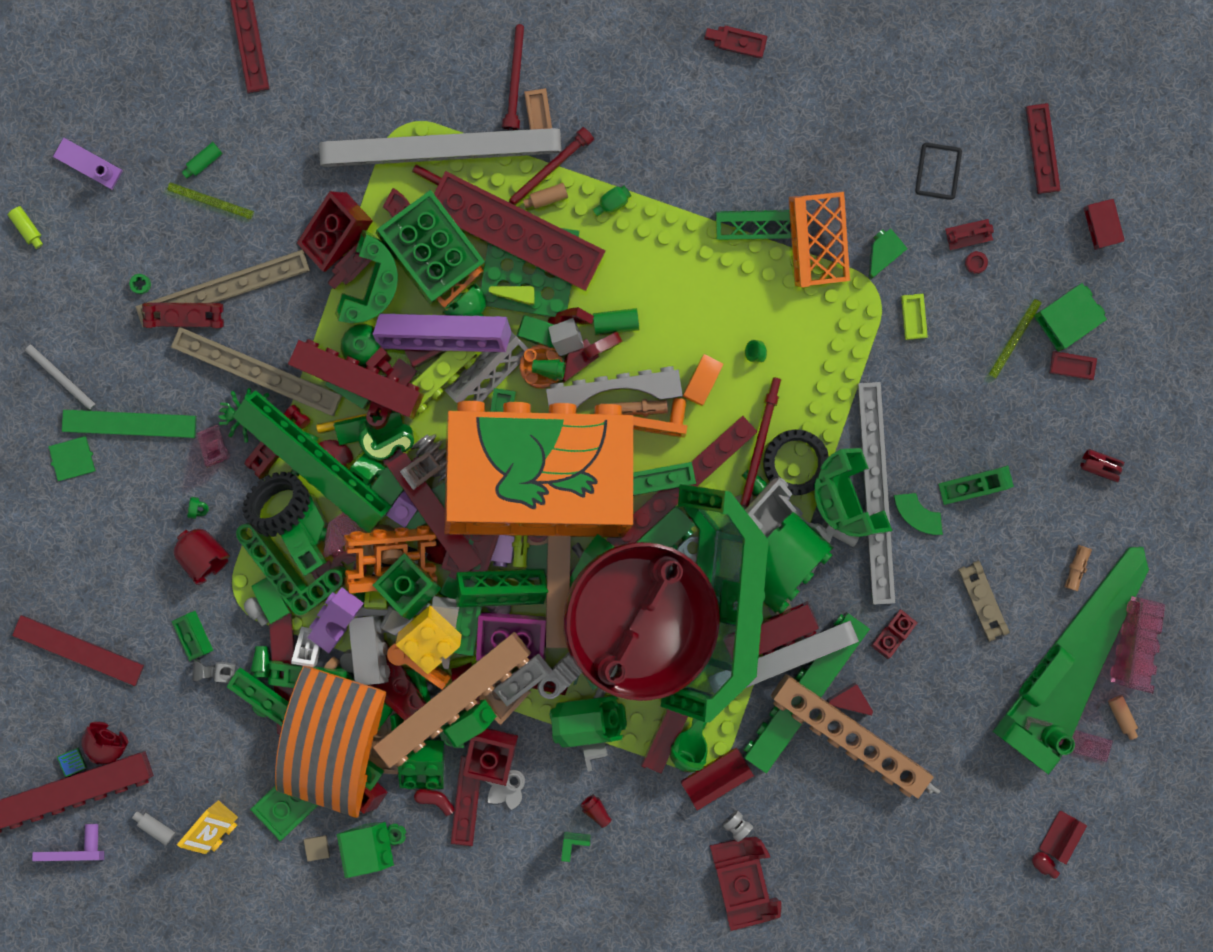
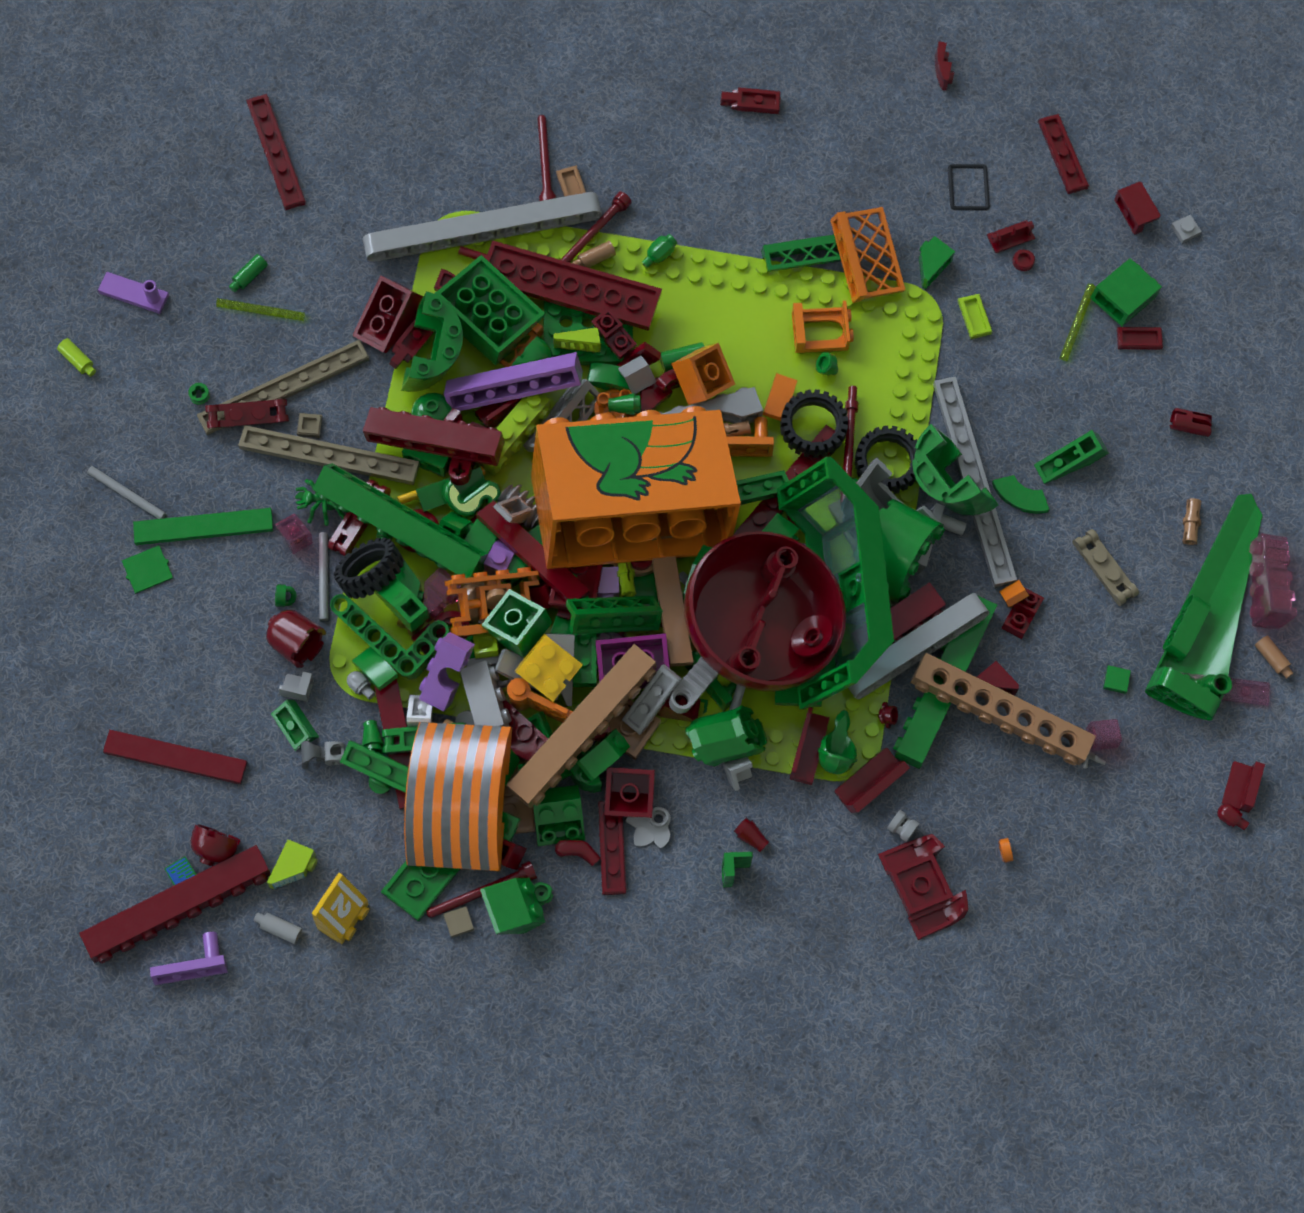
camera: 15 degrees left, 20 degrees down
(173, 772) = (292, 864): none -> lime slope
(198, 600) = (297, 687): none -> light grey panel
(237, 492) = (323, 577): none -> light grey bar
(243, 333) = (309, 425): none -> dark tan tile
(382, 813) = (525, 871): none -> dark red piece
(550, 291) = (614, 334): none -> dark red slope
(630, 351) = (703, 374): none -> orange brick
(676, 643) = (812, 636): none -> dark red dish
(745, 717) = (888, 715): none -> dark red plate
(751, 403) = (821, 400): none -> black tyre
(778, 297) = (840, 315): none -> orange panel
(827, 863) = (1005, 850): none -> orange tile
(889, 616) = (1014, 593): none -> orange tile
(940, 36) = (943, 67): none -> dark red slope
(943, 769) = (1107, 734): none -> clear pink panel
(968, 714) = (1116, 679): none -> green tile
(1148, 252) = (1186, 228): none -> light grey plate

